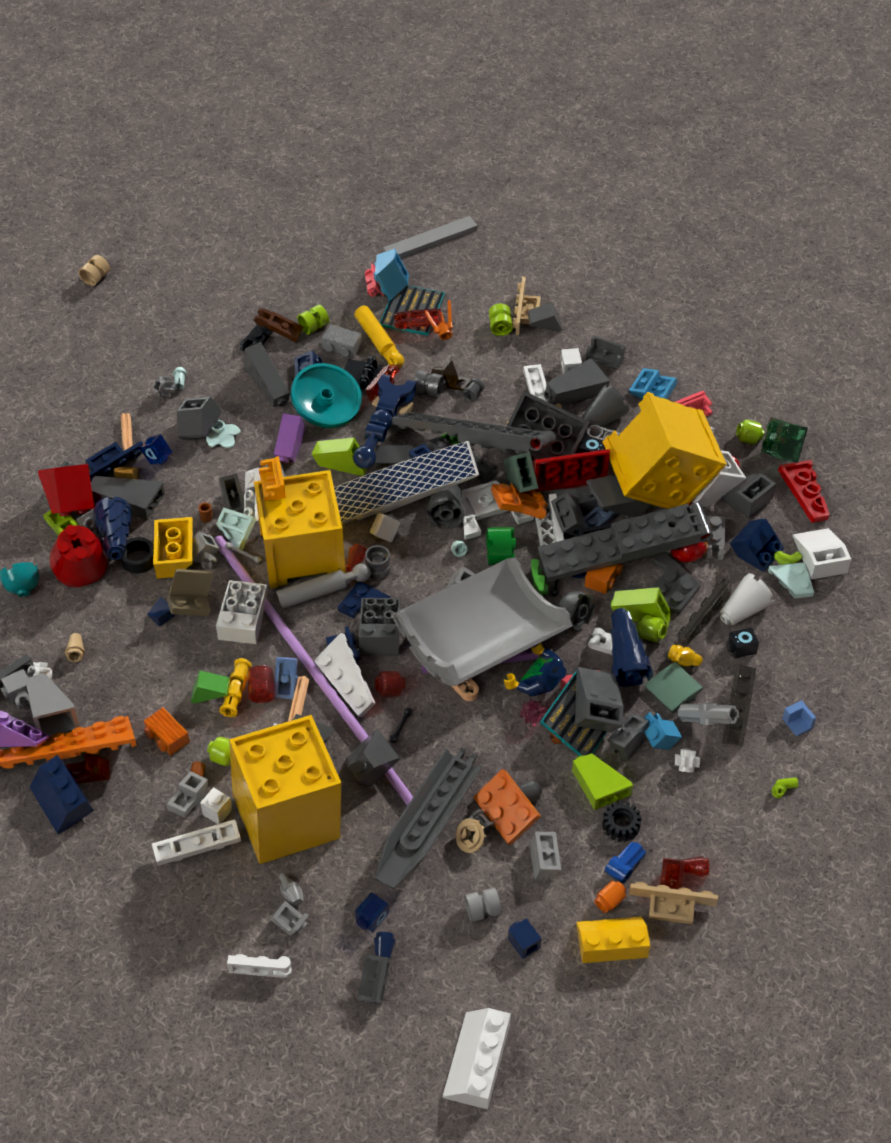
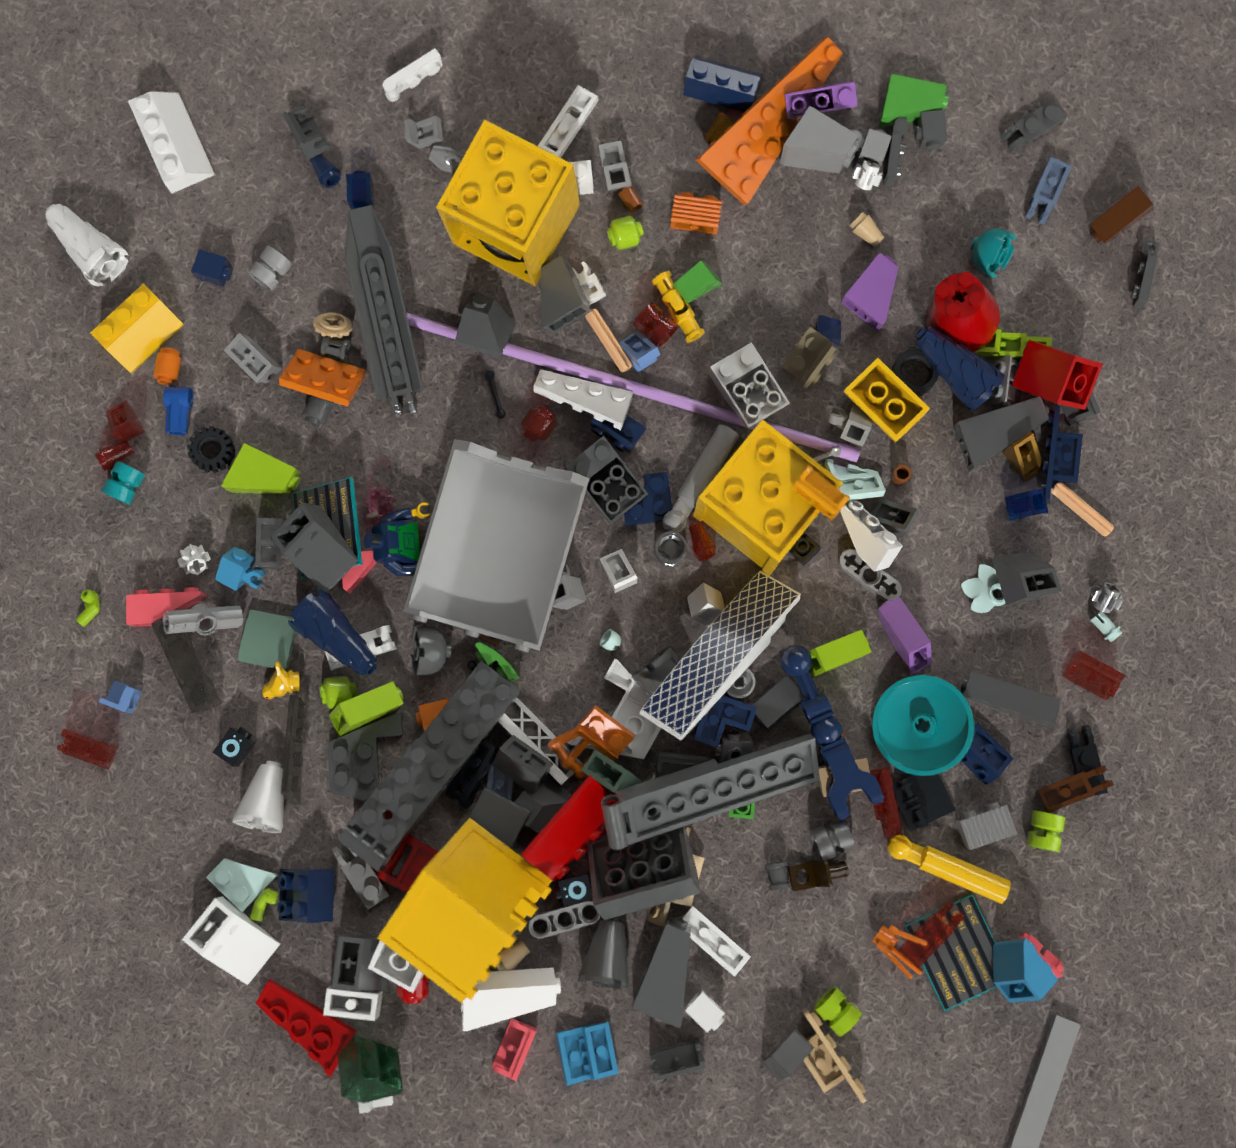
camera: 140 degrees right, 30 degrees up
(110, 611) = (873, 292): none -> medium lavender slope
(211, 363) = (1093, 675): none -> clear red hinge
(419, 573) = (618, 570): none -> white slope
(500, 544) = (563, 665): green brick -> none
(605, 1018) = (88, 248): none -> white cone
(672, 904) = (104, 399): tan bracket -> none
(701, 839) = (123, 483): none -> teal wheel
(734, 750) = (147, 608): none -> coral slope
(749, 432) = (424, 1063): lime head -> none
(772, 472) = (353, 1004): none -> white brick
(841, 706) = (87, 748): none -> clear red hinge

